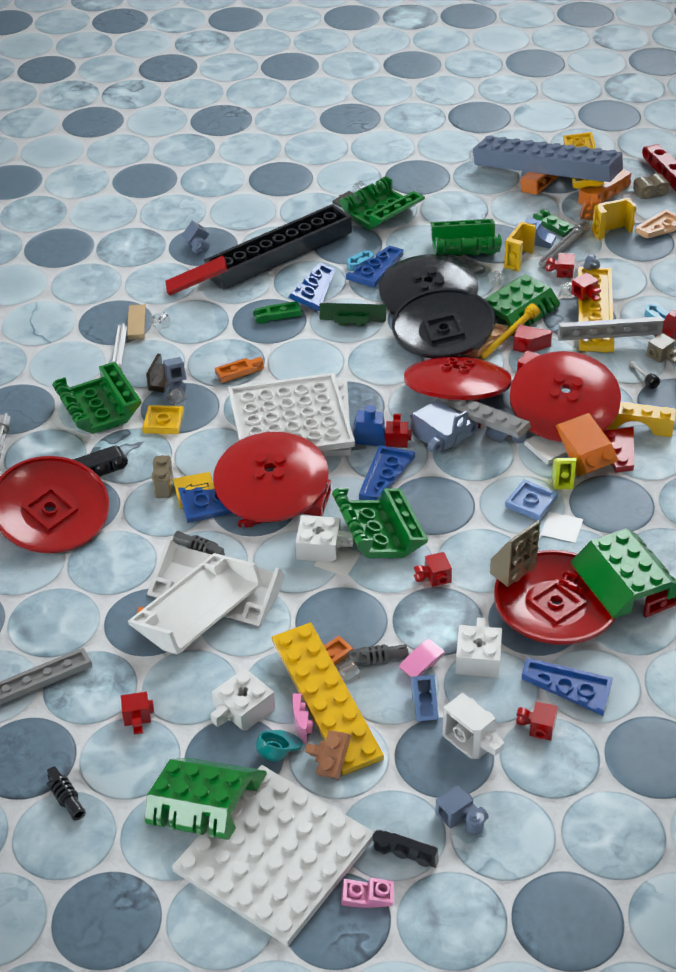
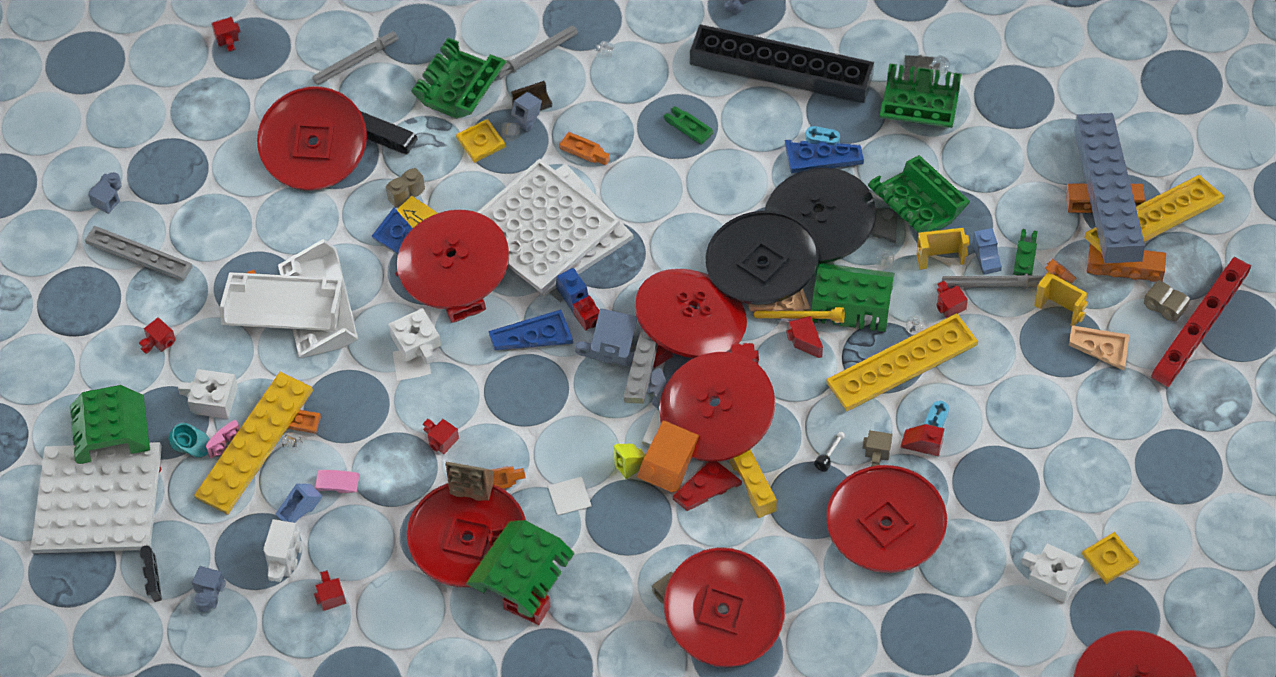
camera: 55 degrees right, 15 degrees up
(65, 793) = (60, 344): black hinge -> none
(136, 322) = (591, 34): tan tile -> none
(196, 275) = (676, 33): red tile -> none
(197, 543) = (350, 263): dark grey hinge -> none
(314, 287) = (743, 129): wing -> none
(330, 754) = (199, 477): nougat hinge -> none
(352, 313) = (729, 182): dark green bracket -> none
(367, 895) = (101, 572): bright pink slope -> none
(377, 654) = (321, 449): dark grey hinge -> none
(382, 526) = (456, 364): green slope -> none
(478, 650) = (373, 512): white hinge -> none
(531, 500) = (580, 455): medium blue plate -> none
(575, 685) = (385, 598): blue wing -> none
(585, 287) = (914, 337): red brick -> none
(589, 262) = (962, 319): sand blue tile -> none
(610, 328) = (862, 390): light grey plate -> none

